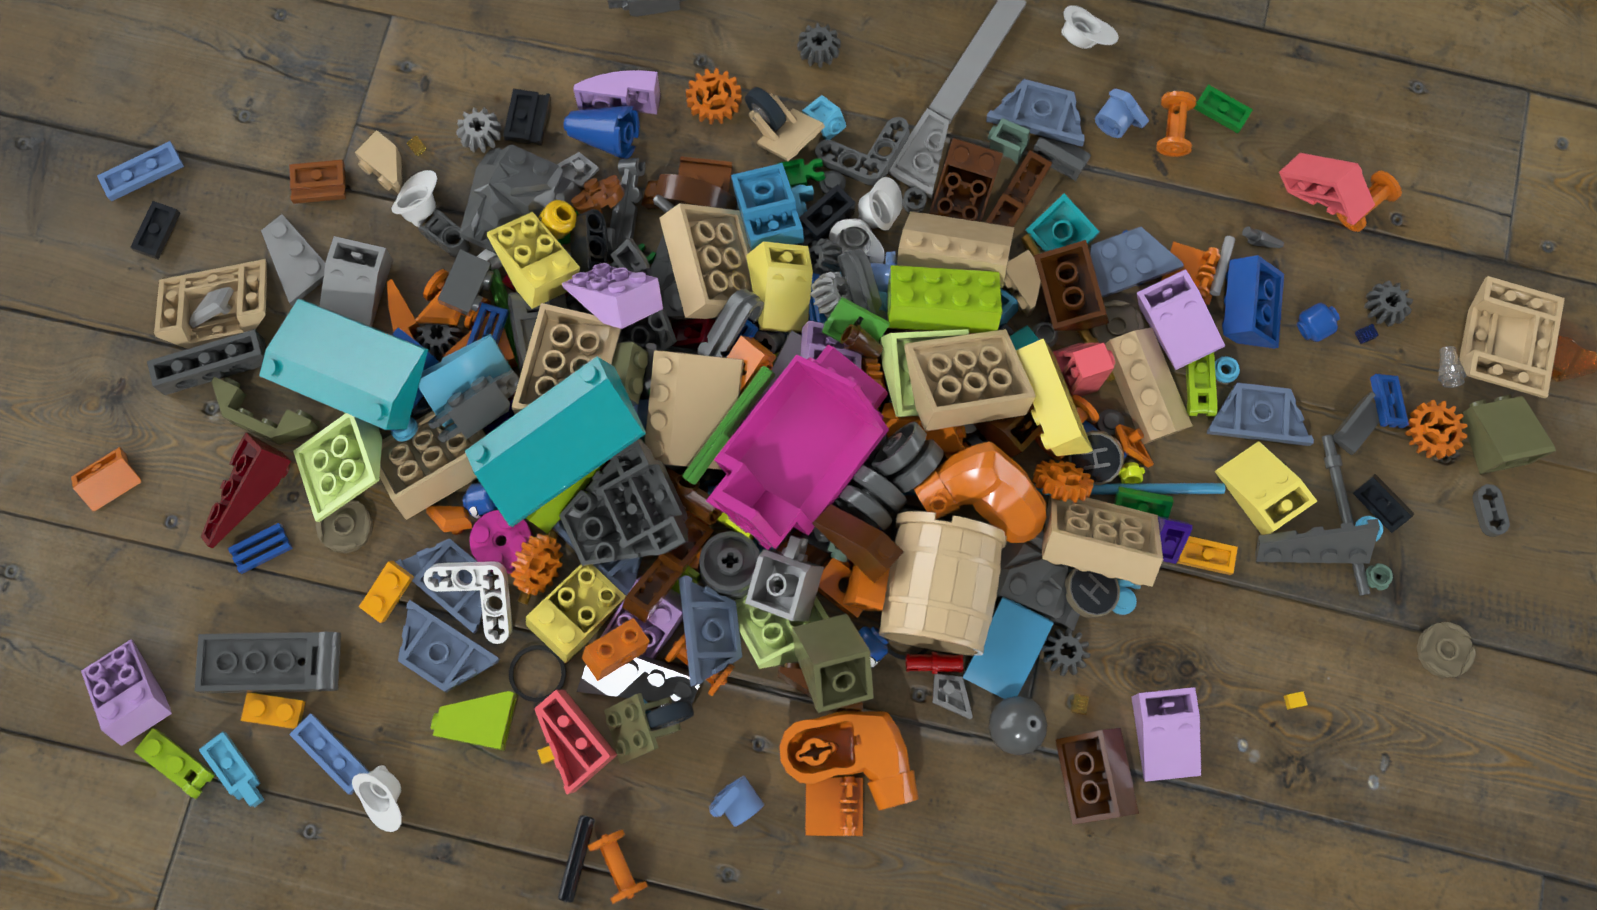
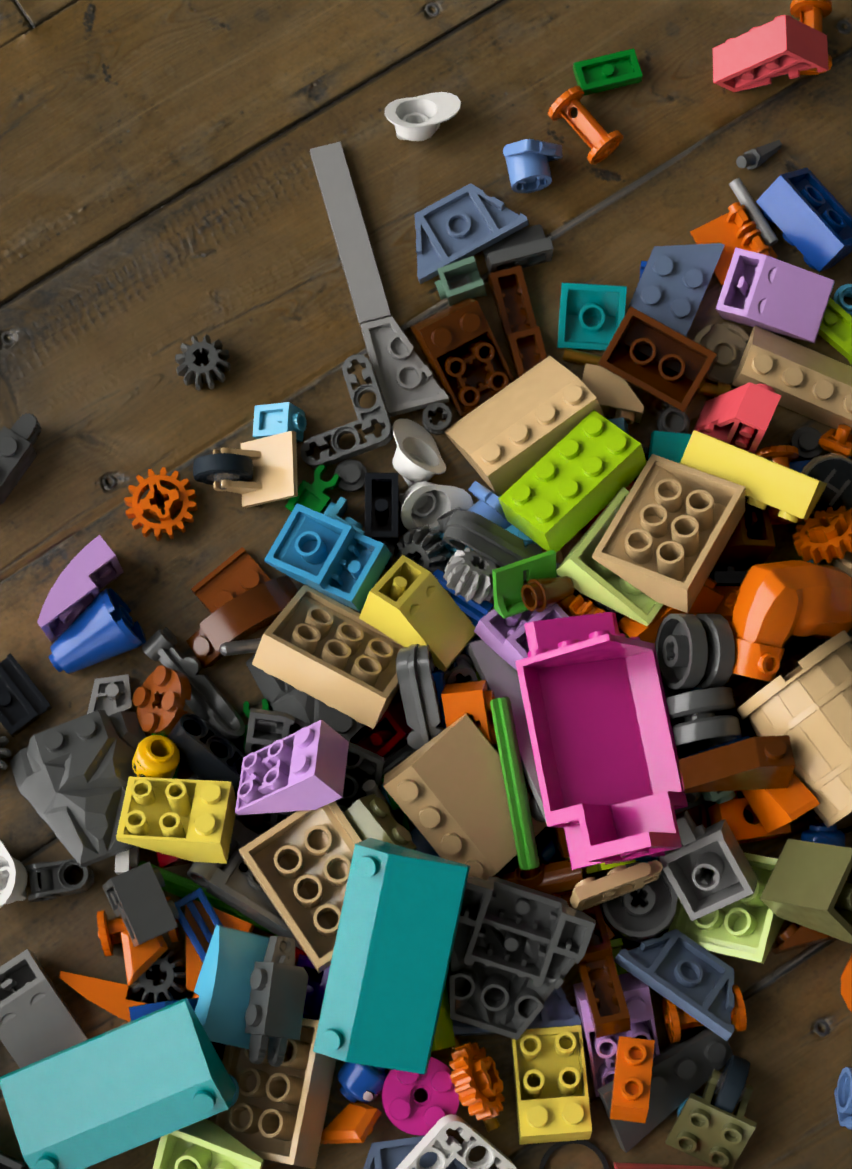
camera: 45 degrees left, 0 degrees up
(722, 536) = (616, 883): none -> tan hinge

